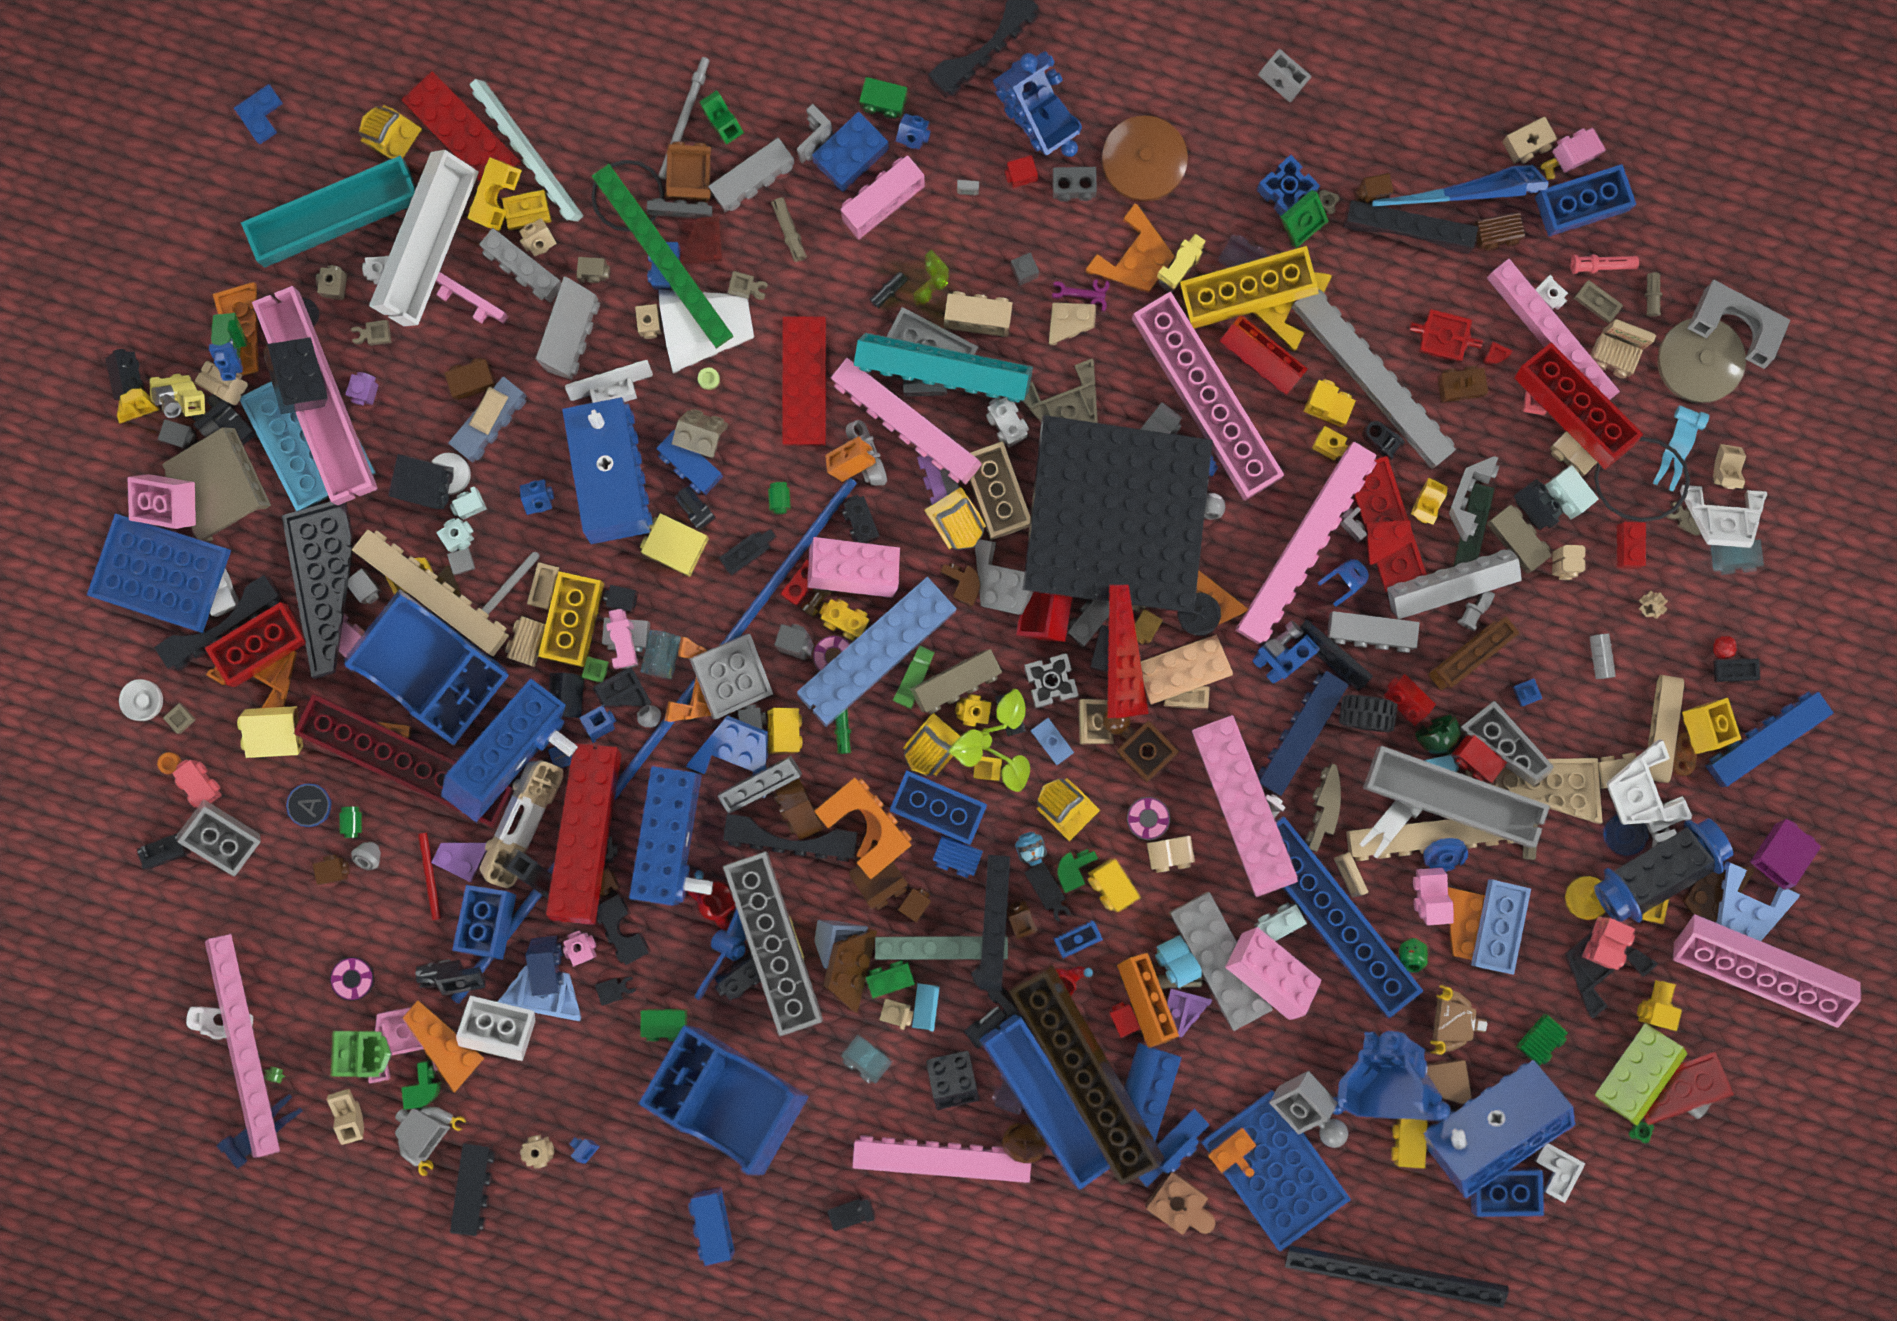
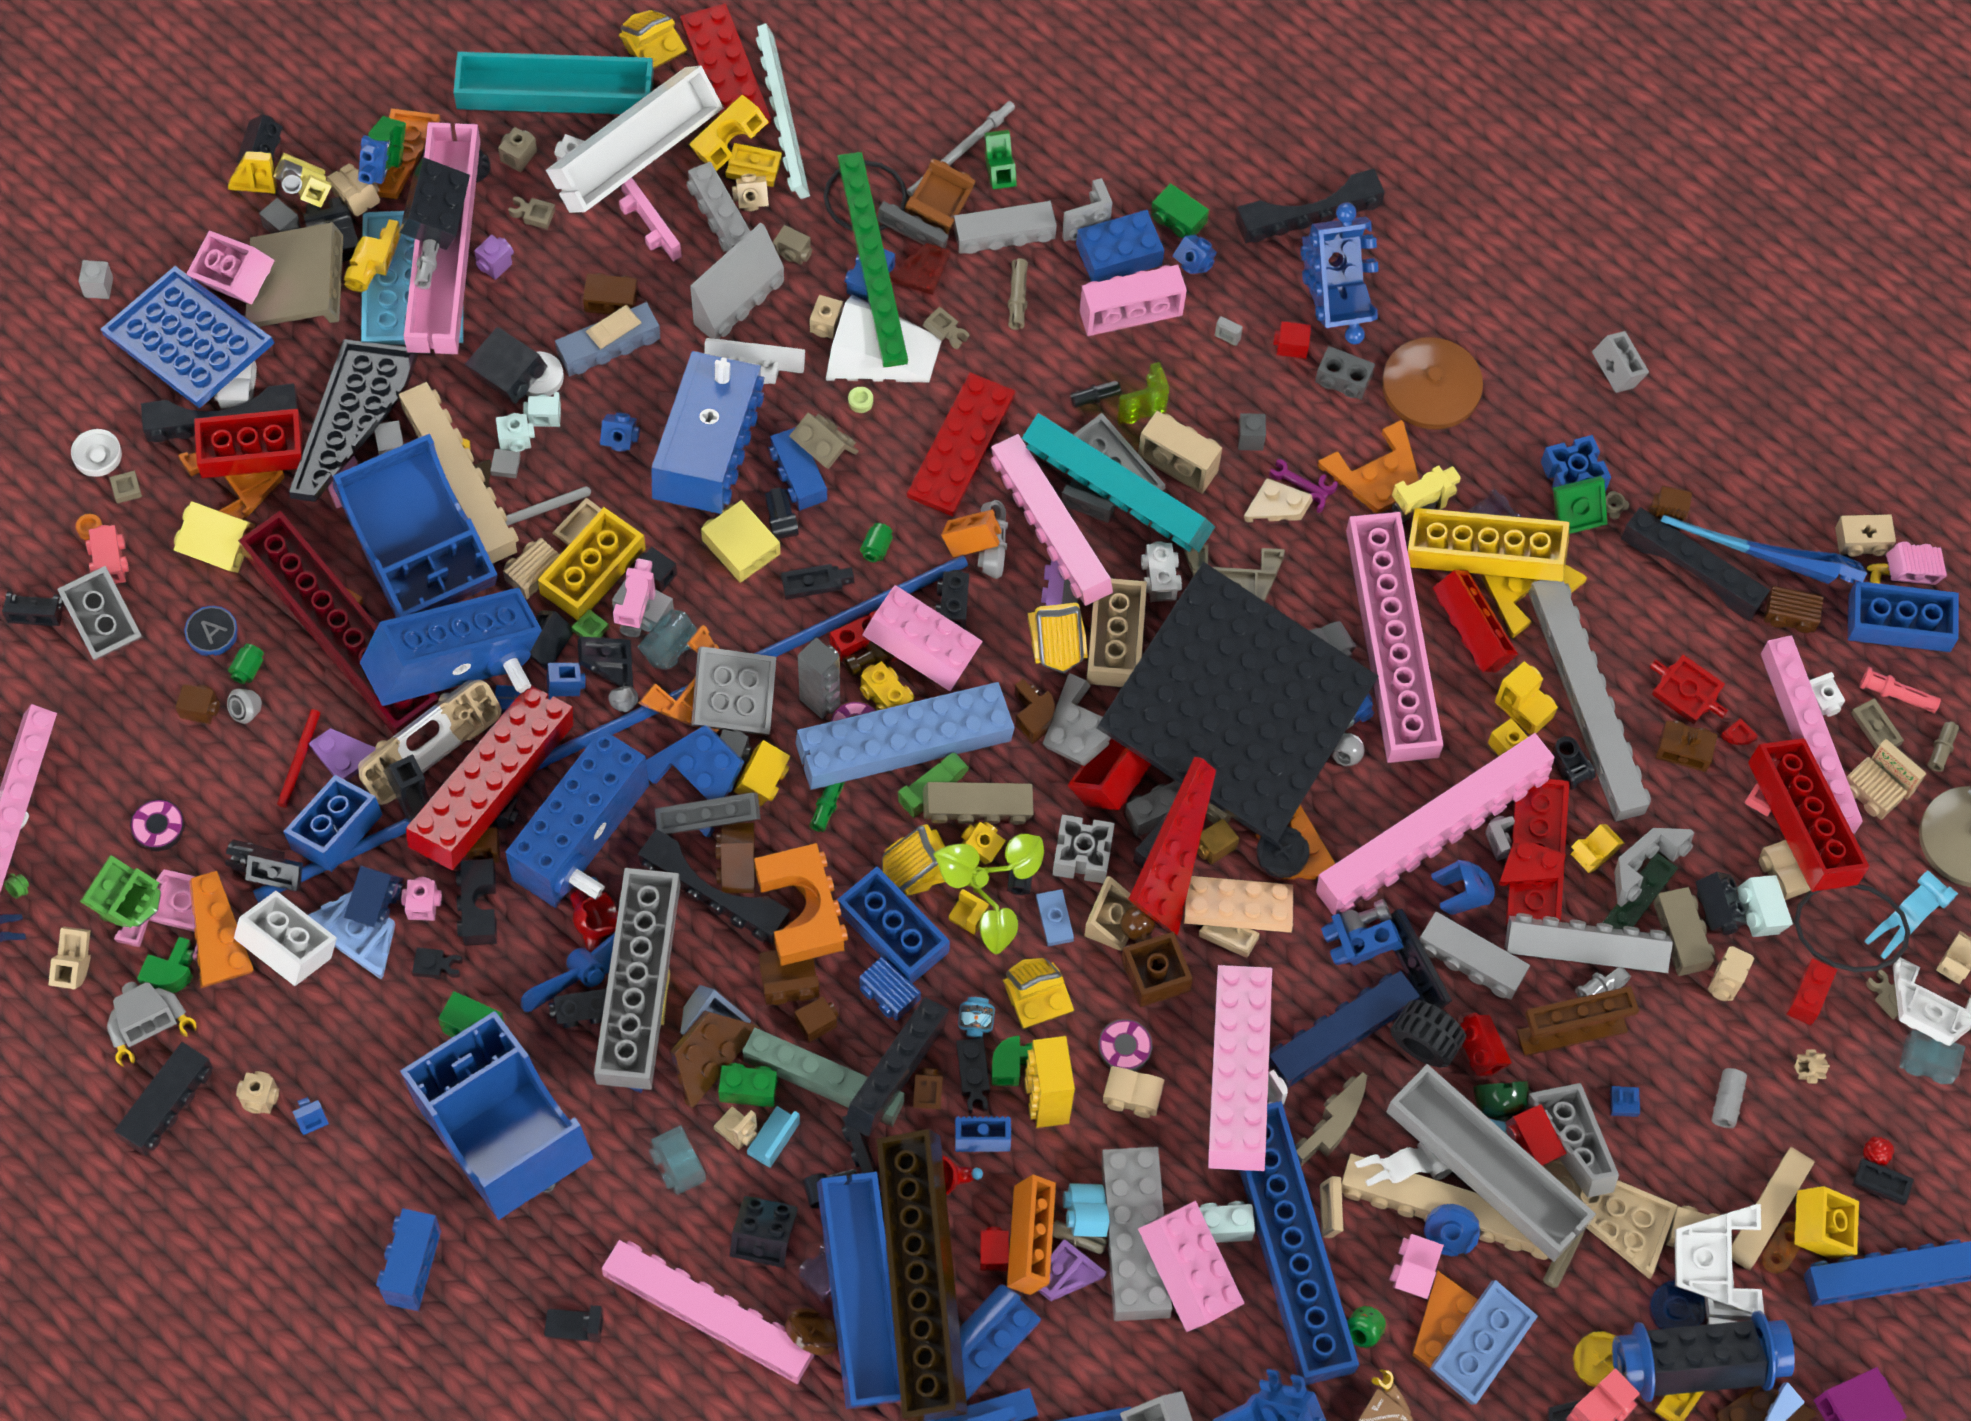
camera: 20 degrees right, 20 degrees down
(59, 554) = (96, 279): none -> light grey brick
(267, 437) = (372, 257): none -> yellow plate
(316, 429) = (426, 264): none -> light grey pin

